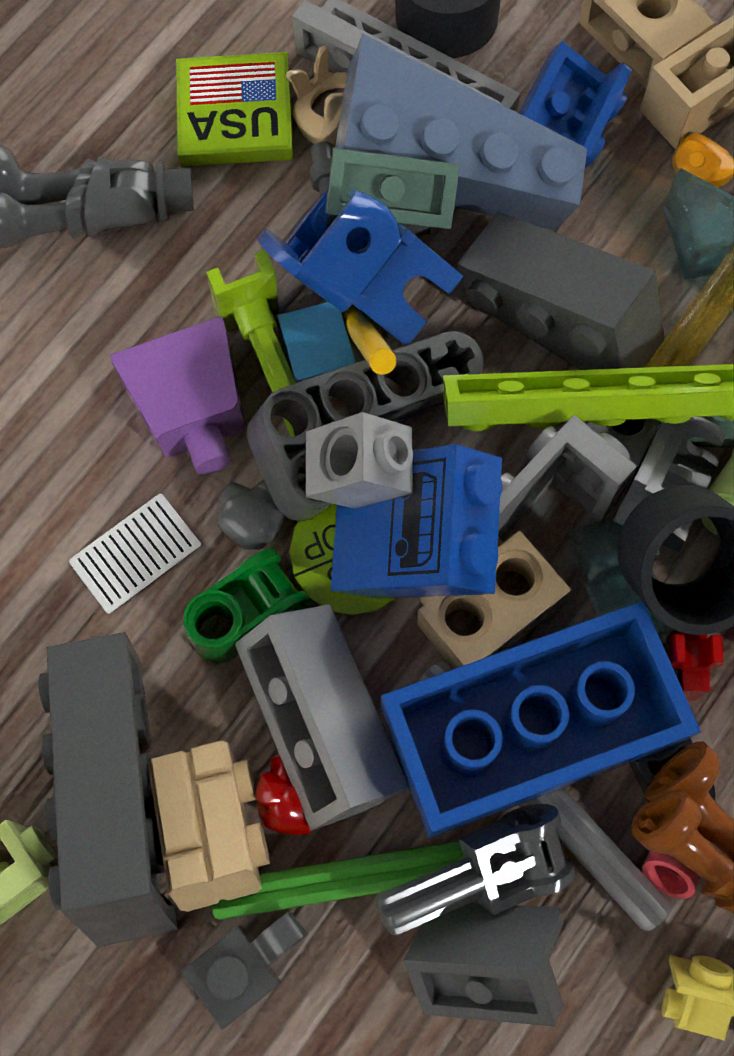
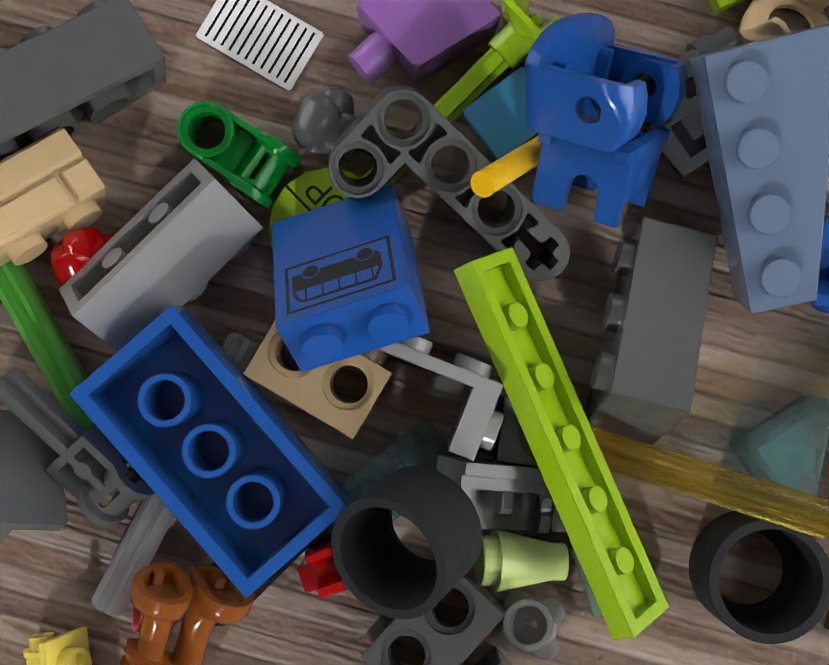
camera: 60 degrees right, 15 degrees up
(359, 461) = (373, 201): light grey brick -> none
(411, 188) = (684, 122): sand green plate -> none

